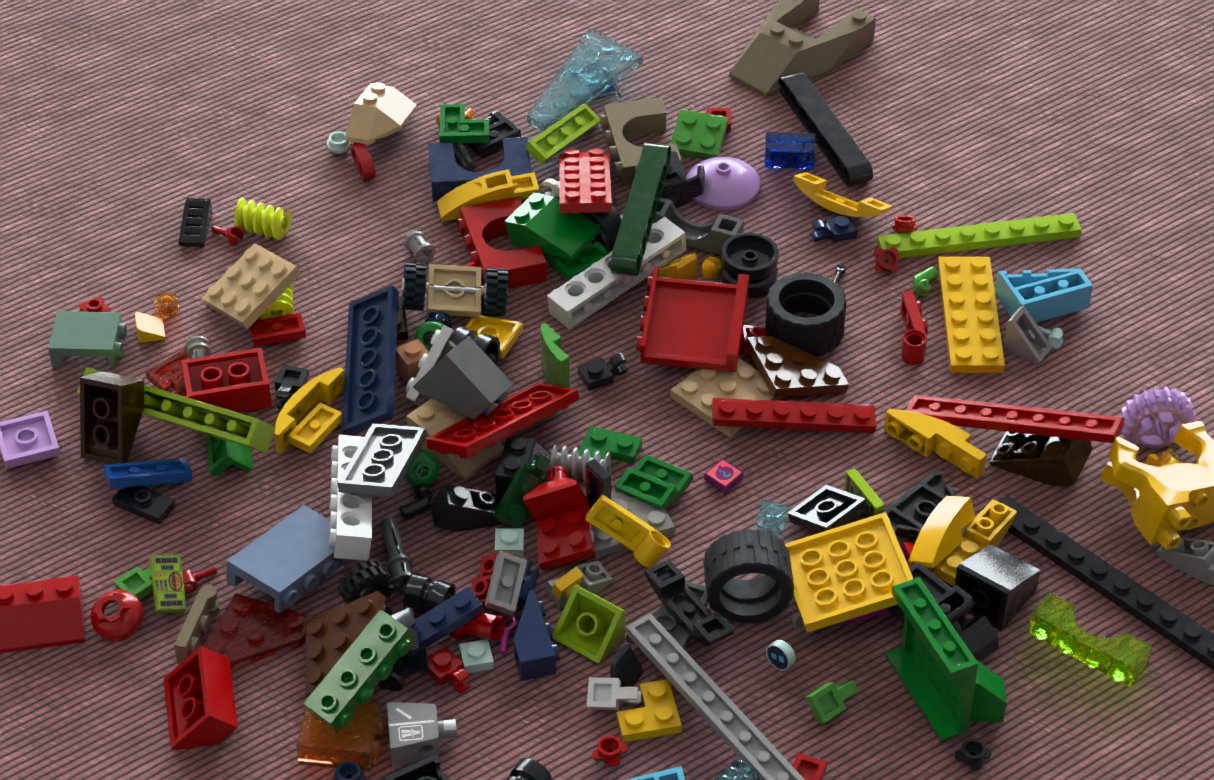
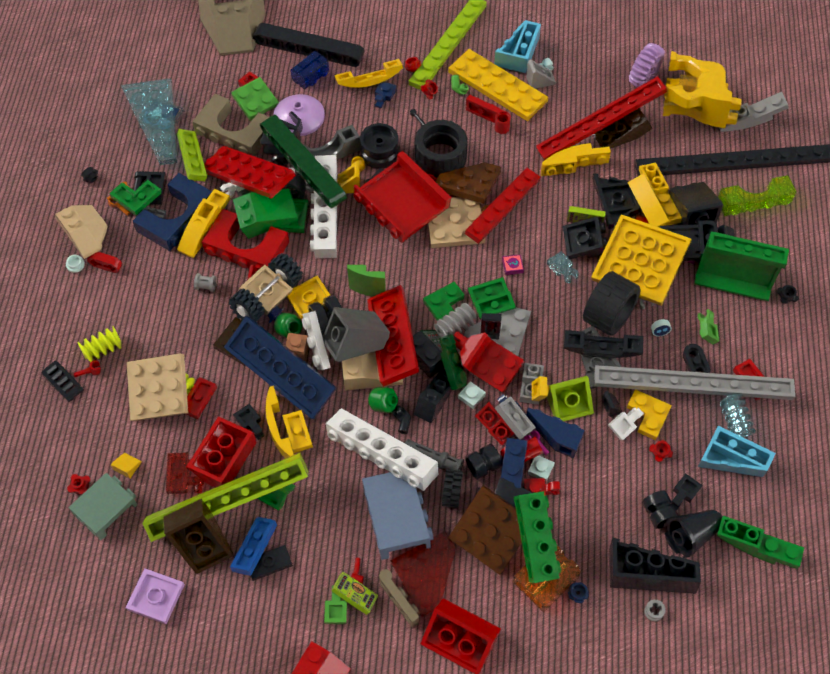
camera: 50 degrees left, 15 degrees up
(124, 622) = (349, 626): red piece -> none
(172, 304) = (115, 448): clear orange bush -> none
(197, 342) = (181, 450): light grey bush -> none
(382, 460) = (377, 415): plate -> none
(416, 731) = (576, 536): light grey torso -> none
(455, 82) = (90, 174): none -> black plate
(598, 373) = (387, 264): black plate -> none
(644, 541) = (524, 333): yellow plate -> none
(766, 717) = (696, 363): none -> black plate

